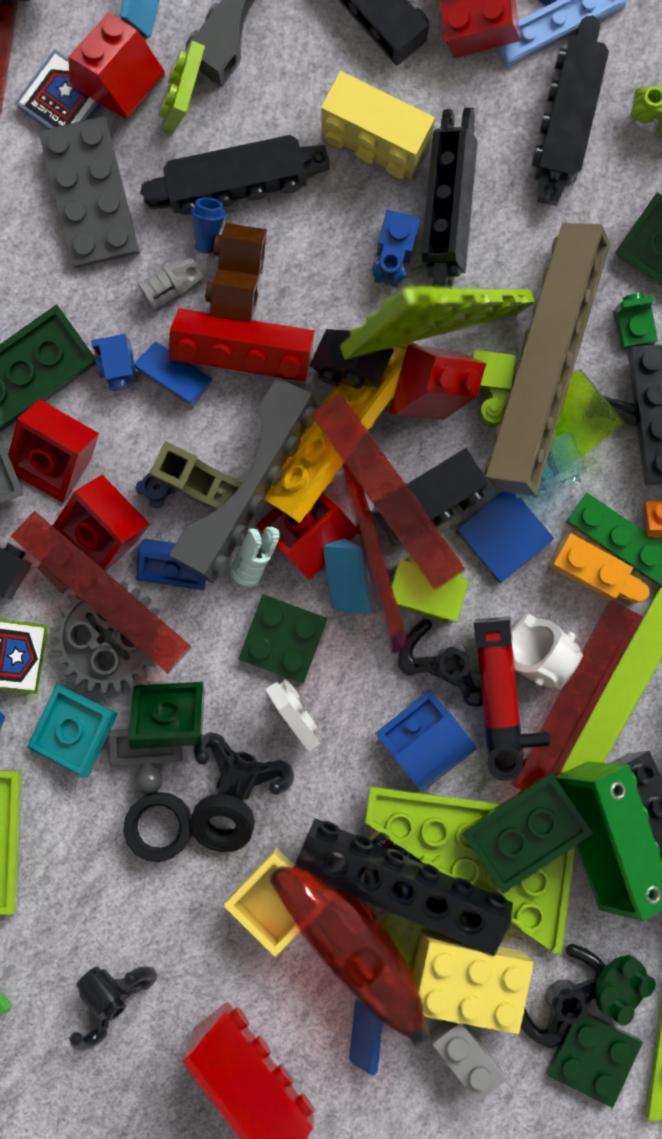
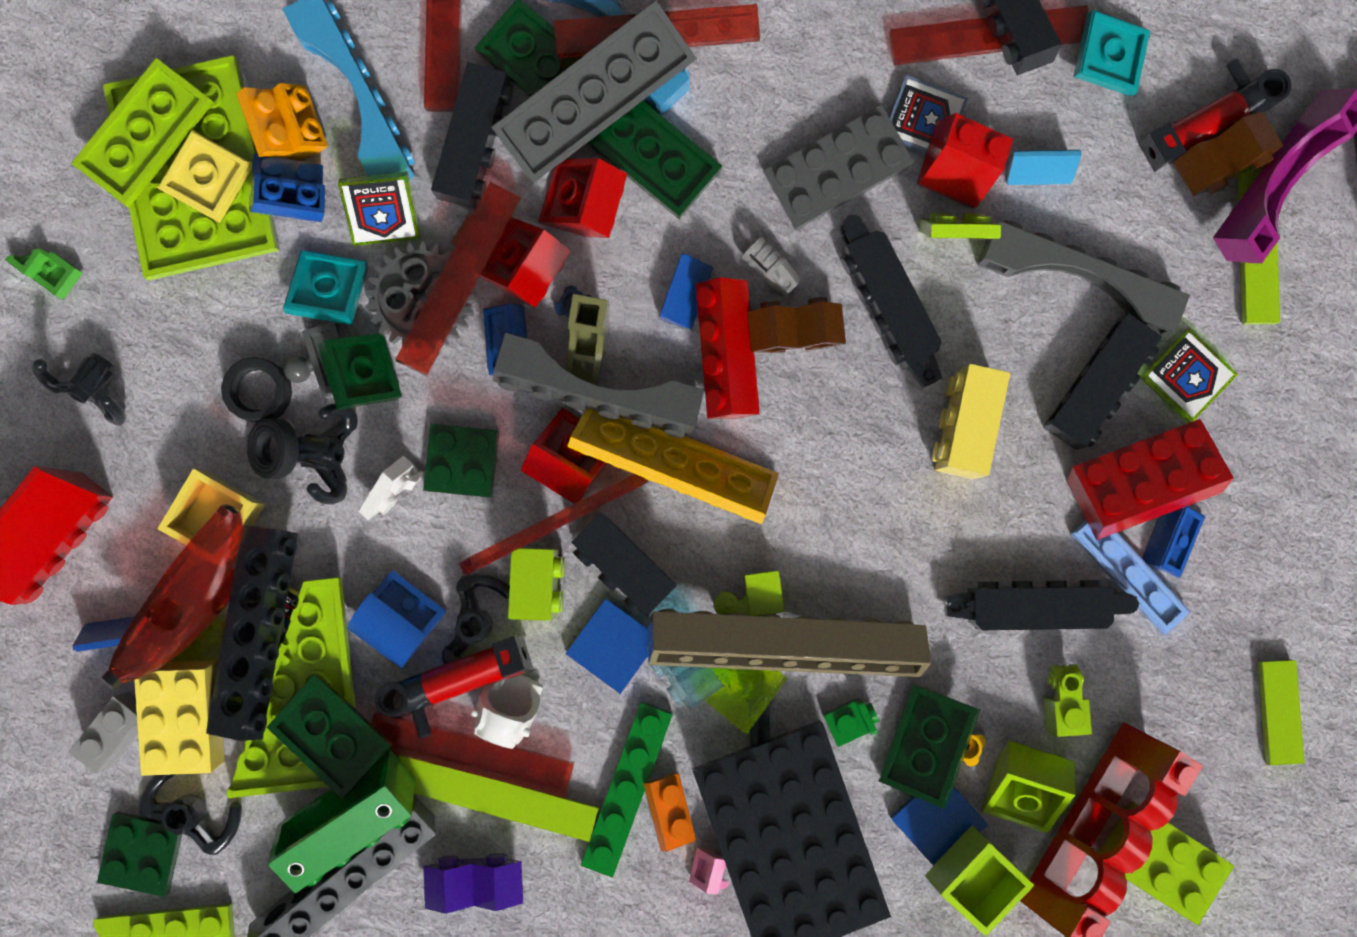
camera: 70 degrees right, 0 degrees up
(115, 361) = (682, 235): blue brick -> none
(207, 222) = (838, 285): blue cone -> none
(254, 556) = (528, 413): light aqua hinge -> none
(347, 577) = (531, 505): dark azure slope -> none
(355, 371) = (738, 455): black brick -> none
(388, 492) = (613, 522): clear red tile -> none
(395, 247) = (864, 470): blue brick -> none
(430, 312) = (790, 518): lime wing -> none
(435, 382) = (737, 541): red slope -> none
(449, 198) = (920, 510): black hinge -> none
(597, 570) = (597, 742): light orange hinge -> none
(622, 988) = (209, 864): dark green piece -> none

